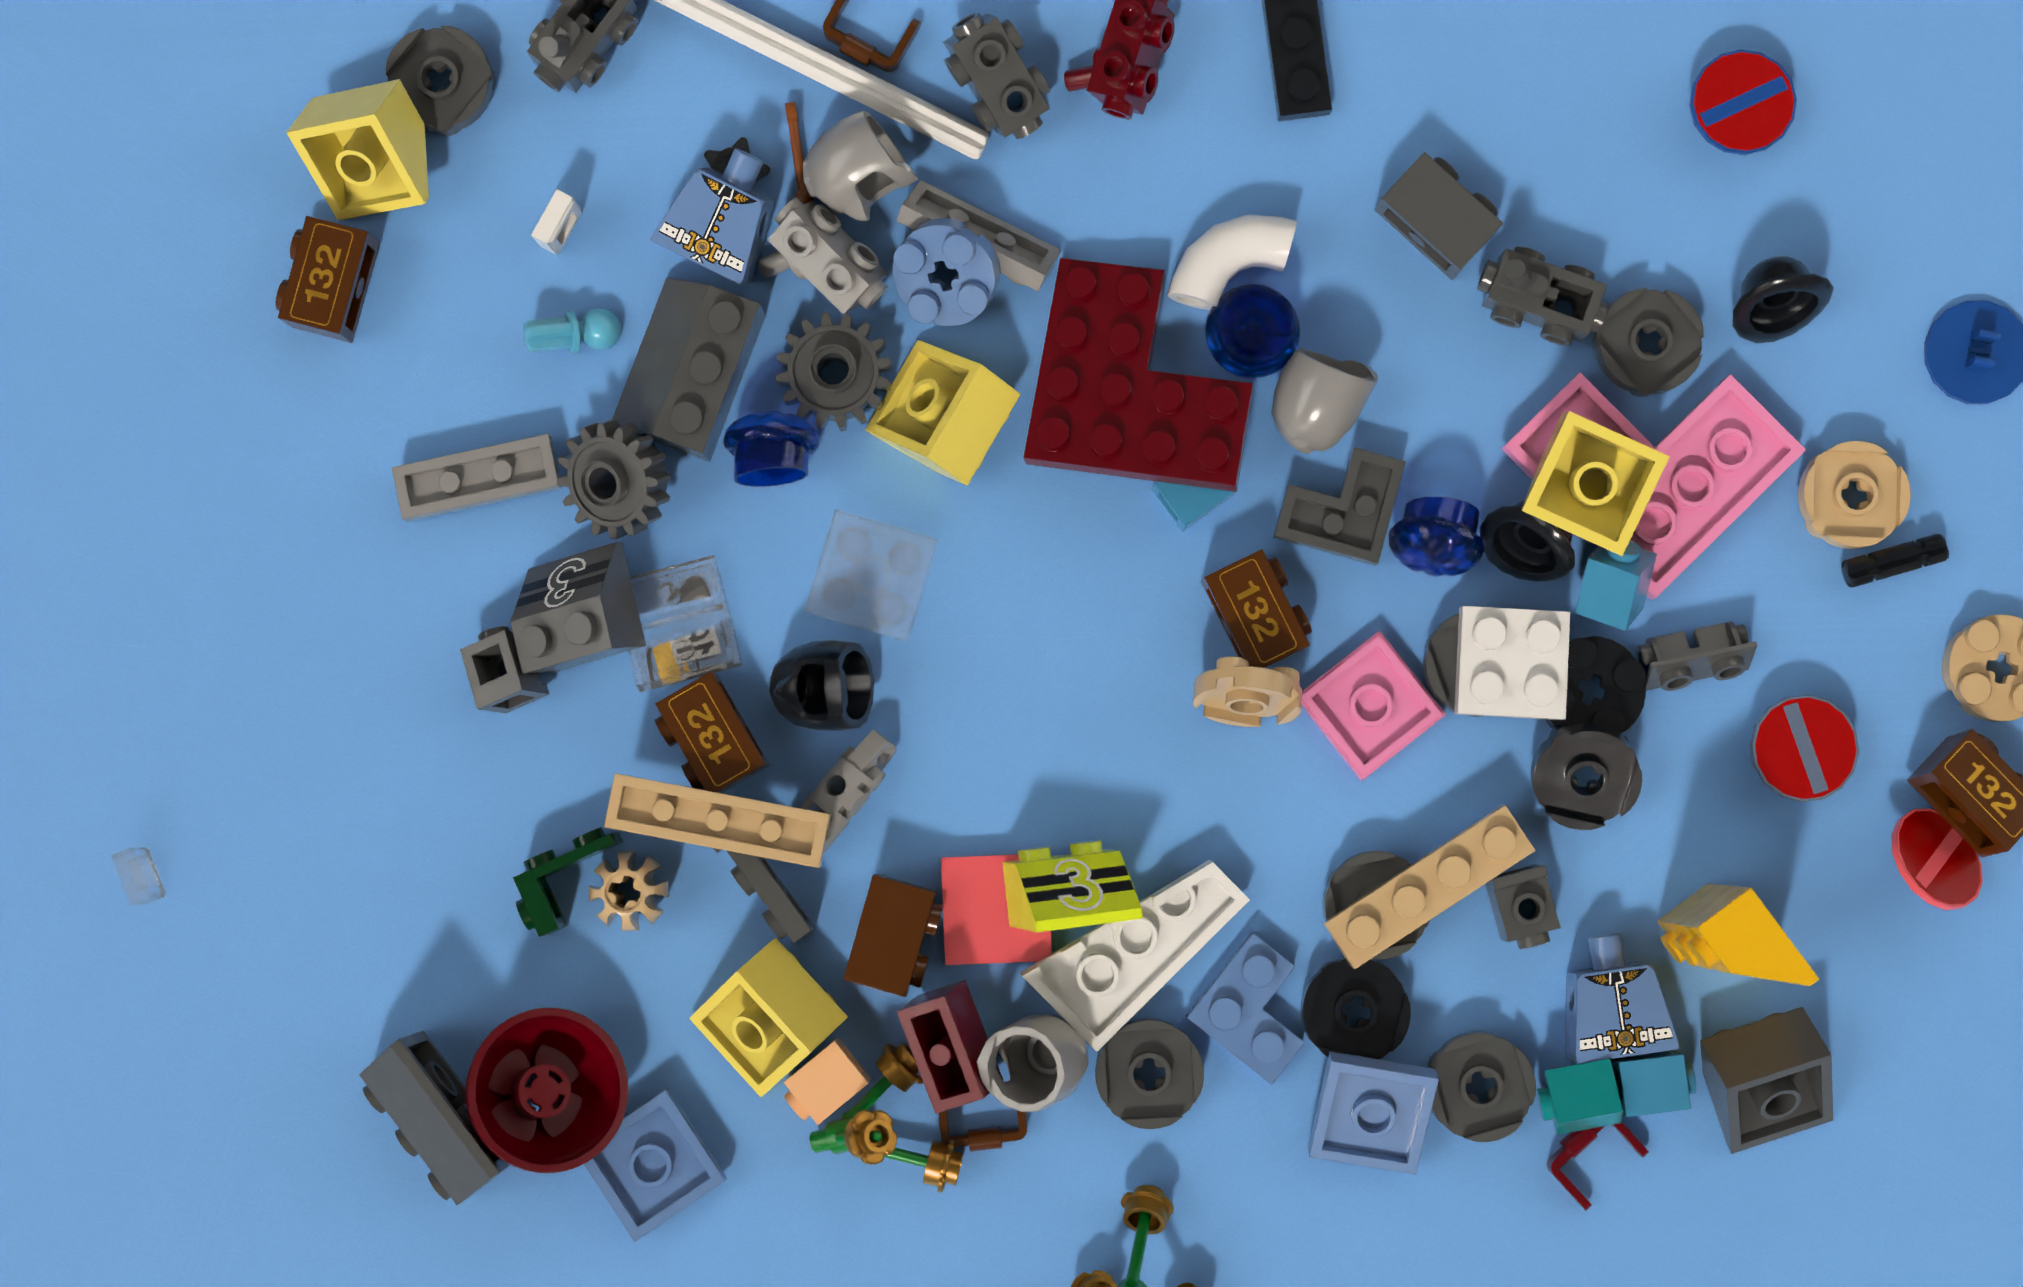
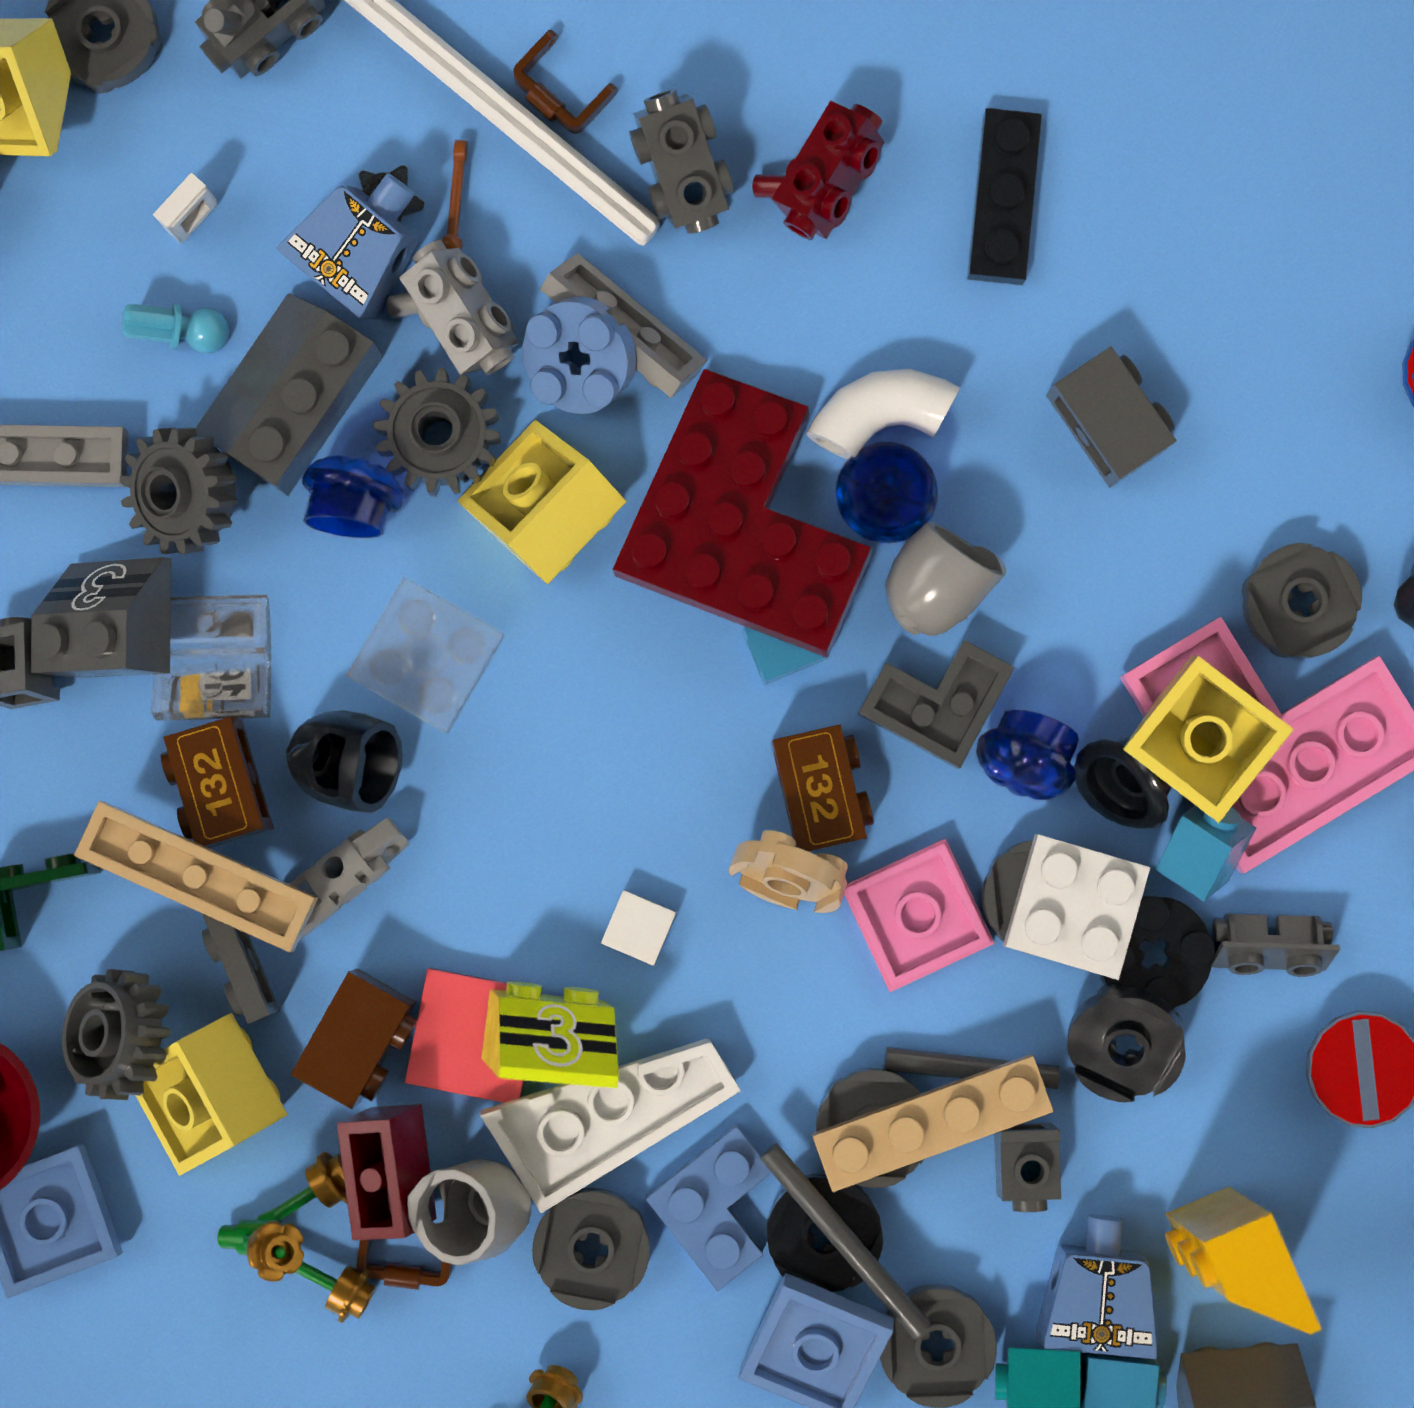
camera: 10 degrees right, 0 degrees up
(614, 899) = (73, 930): tan piece -> none
(676, 981) = (114, 1034): none -> dark grey gear
(825, 1082) = (249, 1177): light nougat brick -> none
(855, 166) = (510, 222): light grey piece -> none
(1122, 776) = (638, 927): none -> white tile
(1376, 1010) = (845, 1241): none -> dark grey bar
(1433, 833) = (954, 1065): none -> dark grey bar
(1527, 289) = (1186, 516): dark grey brick -> none

